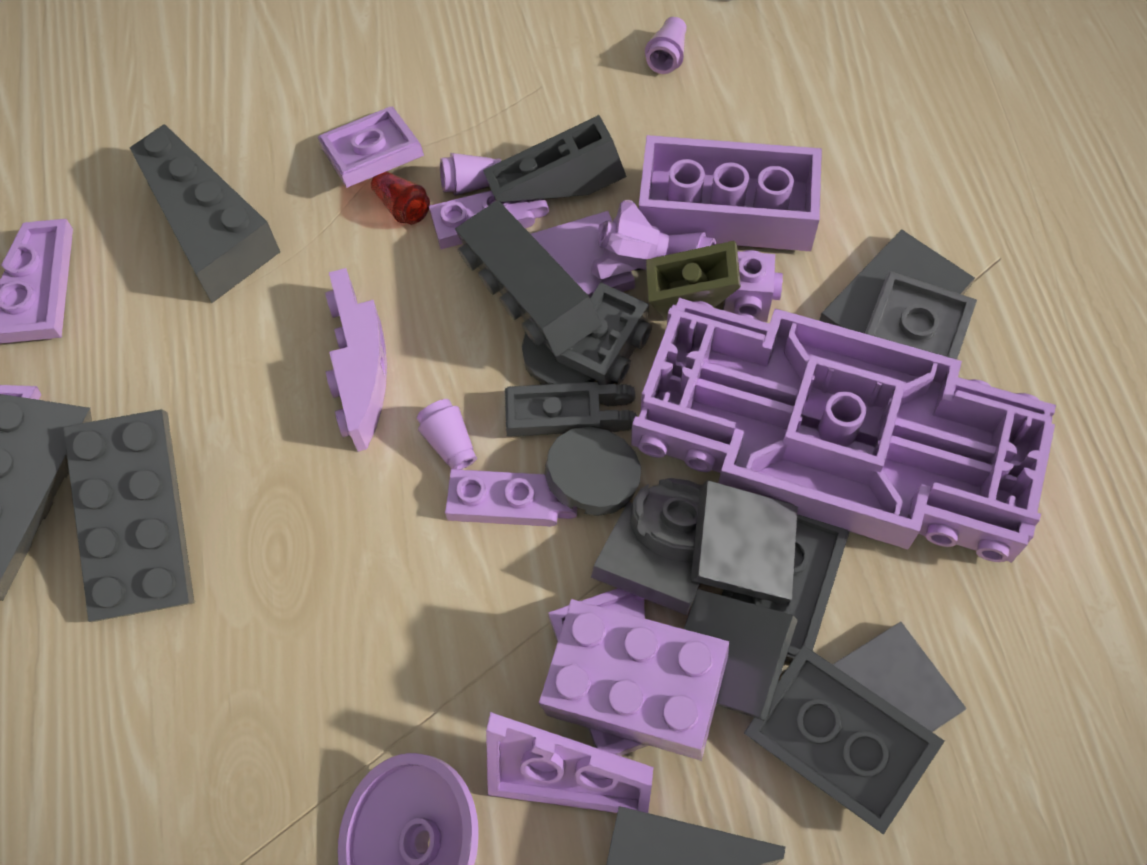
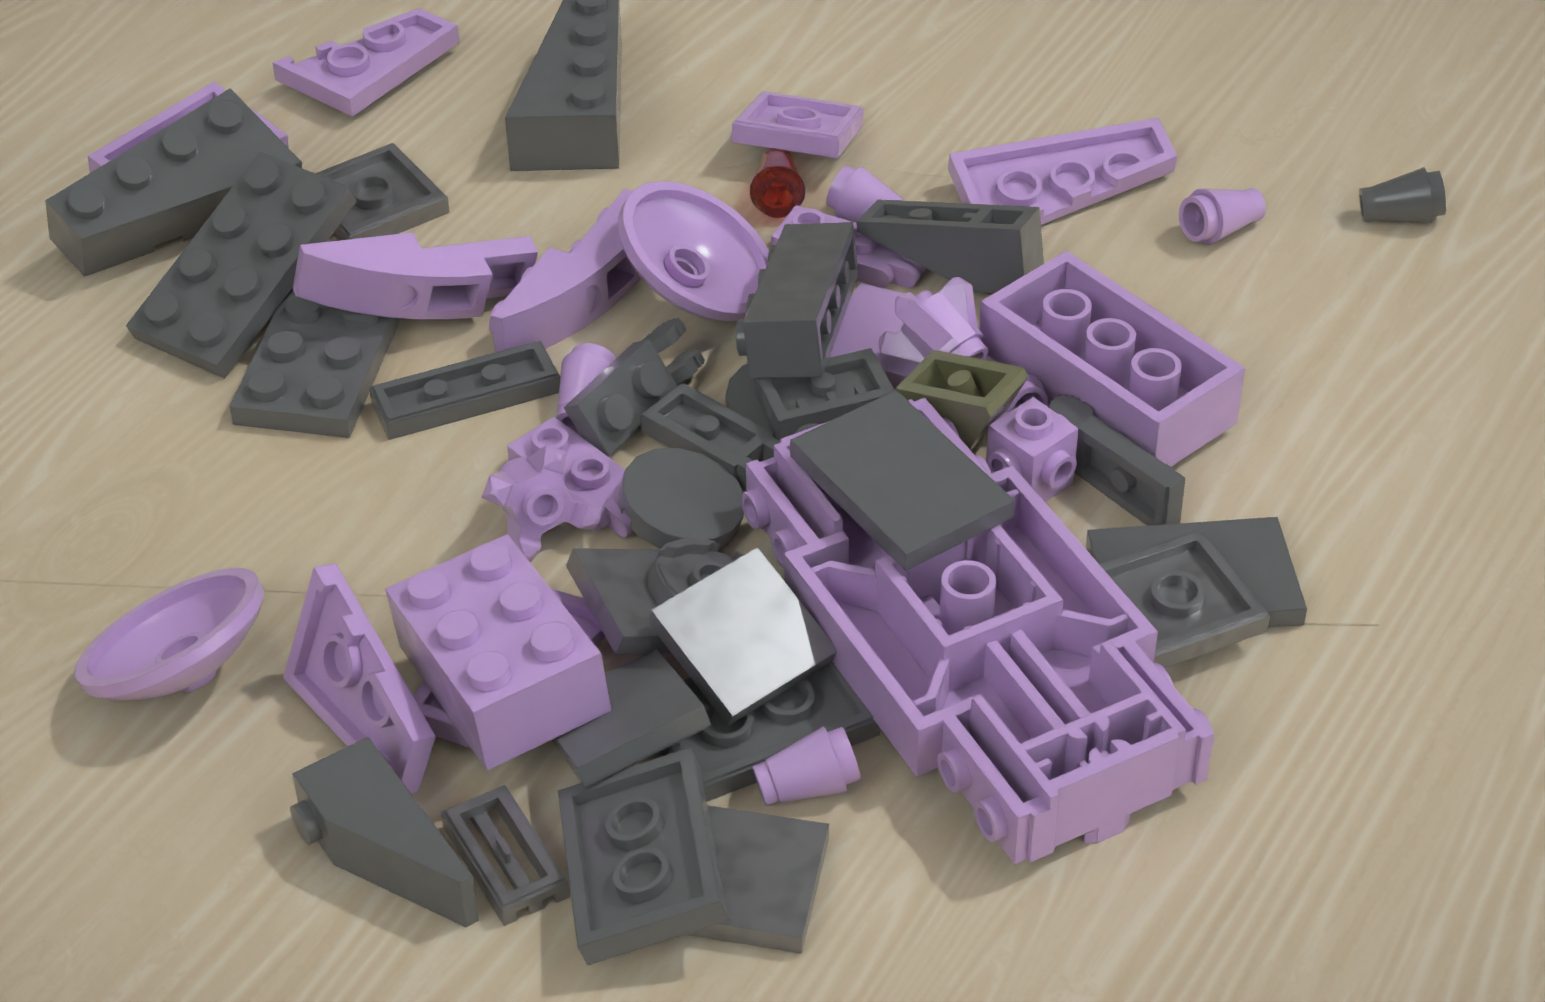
camera: 40 degrees right, 20 degrees down
(145, 380) = (388, 192): none -> flat silver tile
(243, 531) = (312, 369): none -> dark grey plate
(262, 445) = (405, 281): none -> lavender slope
(366, 491) = (464, 389): none -> dark grey tile
(420, 287) = (692, 249): none -> lavender dish
(478, 410) = (636, 380): none -> dark grey hinge
(514, 541) = (537, 498): none -> lavender rock
(551, 82) = (1064, 169): none -> lavender wing
(746, 371) = (901, 479): none -> dark grey tile
(796, 814) = (525, 892): none -> flat silver tile
(802, 259) = (1122, 468): none -> dark grey hinge
(853, 593) = (808, 768): none -> lavender cone

